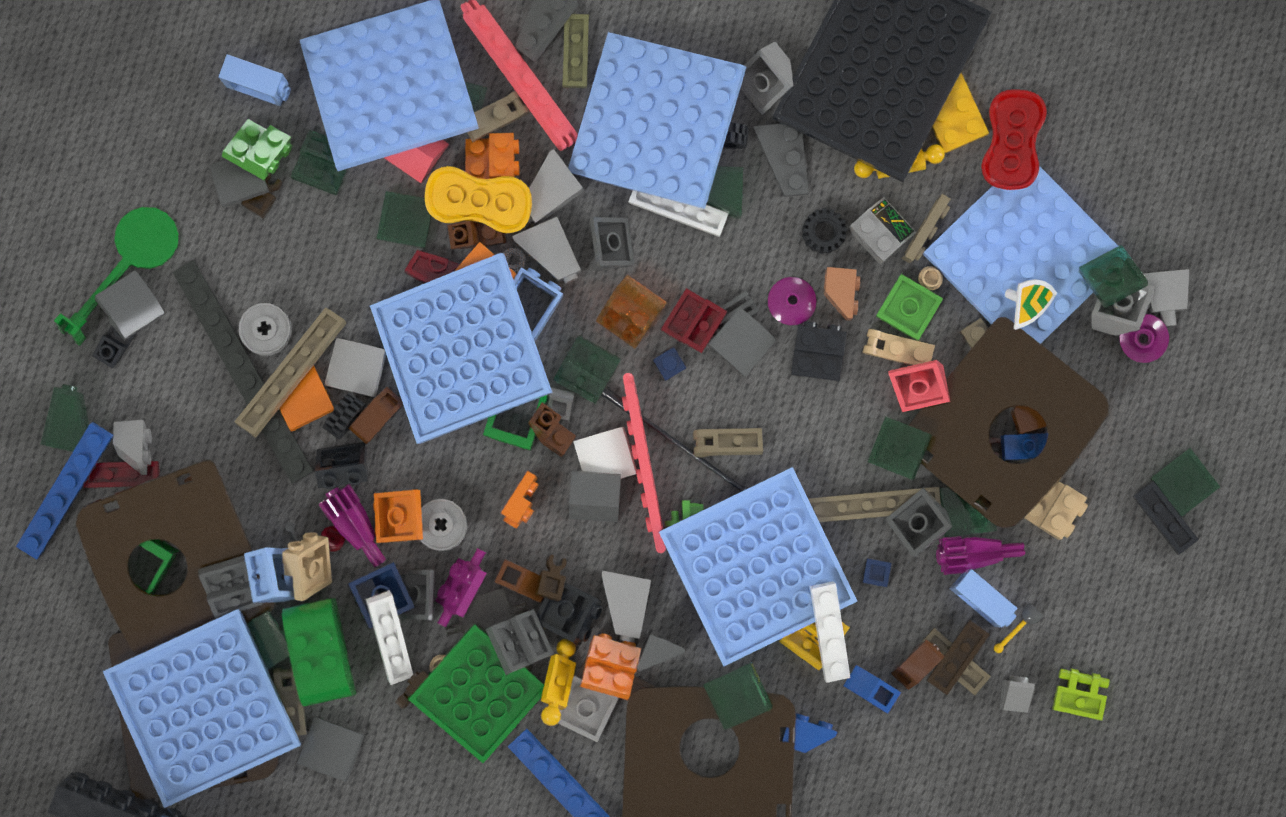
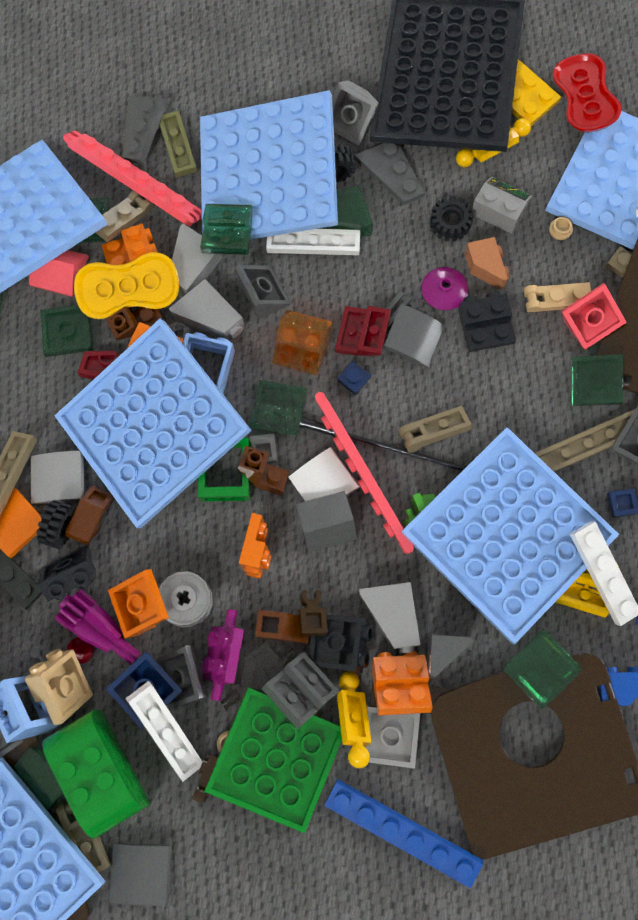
camera: 10 degrees left, 10 degrees down
(594, 173) = (226, 229): none -> clear green slope
(909, 307) = (553, 258): bright green plate -> none
(927, 229) = (541, 187): dark tan plate -> none

